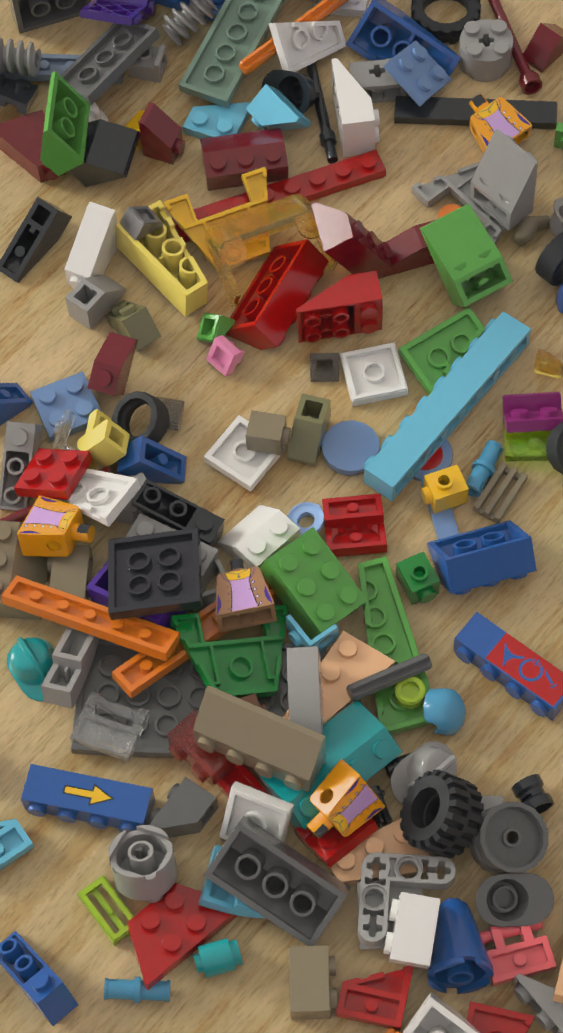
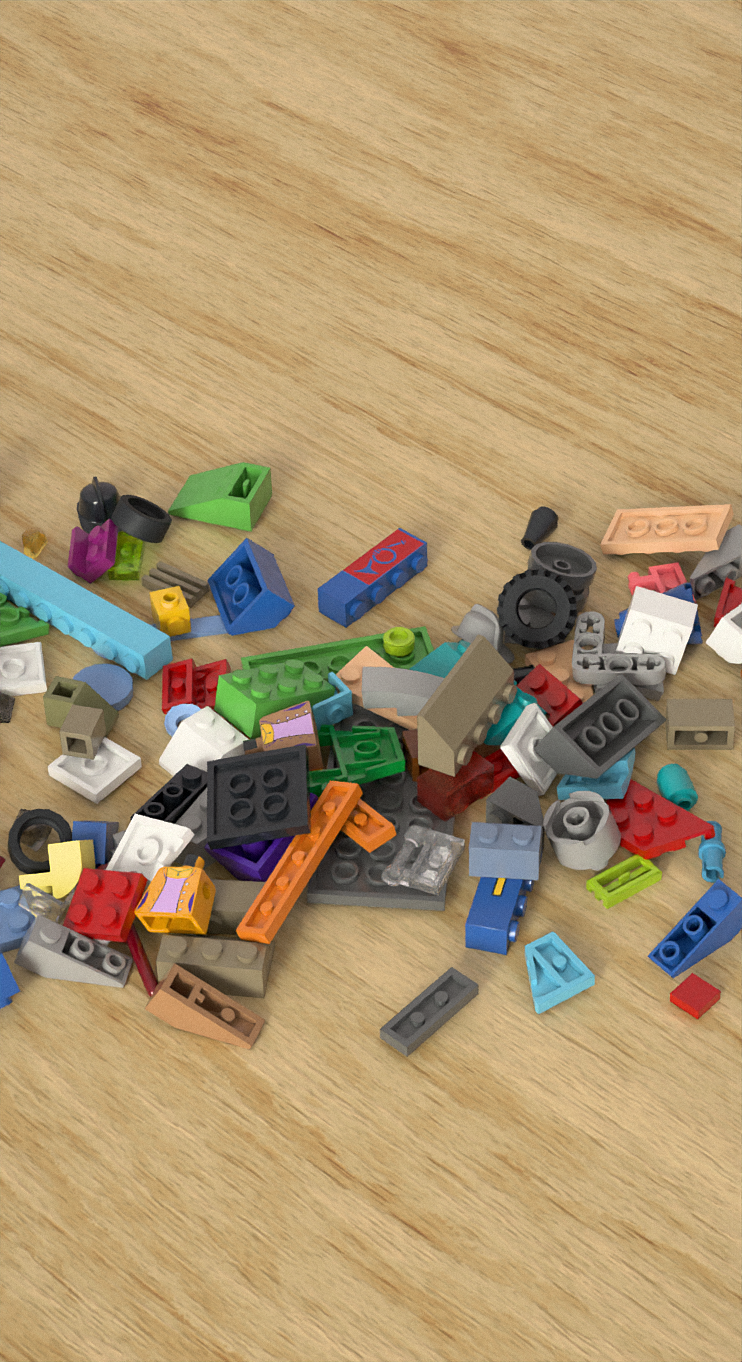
camera: 90 degrees left, 20 degrees down
(29, 665) = (335, 944): teal piece -> none
(69, 668) = (349, 893): light grey slope -> none
(113, 790) = (505, 850): none -> sand blue slope
(343, 802) = (530, 668): light orange torso -> none
(376, 999) = (711, 676): red wing -> none
(389, 677) = (384, 645): dark grey axle -> none
(418, 578) = (269, 634): green brick -> none
(445, 710) = (420, 614): dark azure hair -> none
(483, 467) = (137, 588): dark azure pin -> none
(514, 899) = (615, 580): dark grey piece -> none
(531, 793) = (503, 570): black wheel -> none

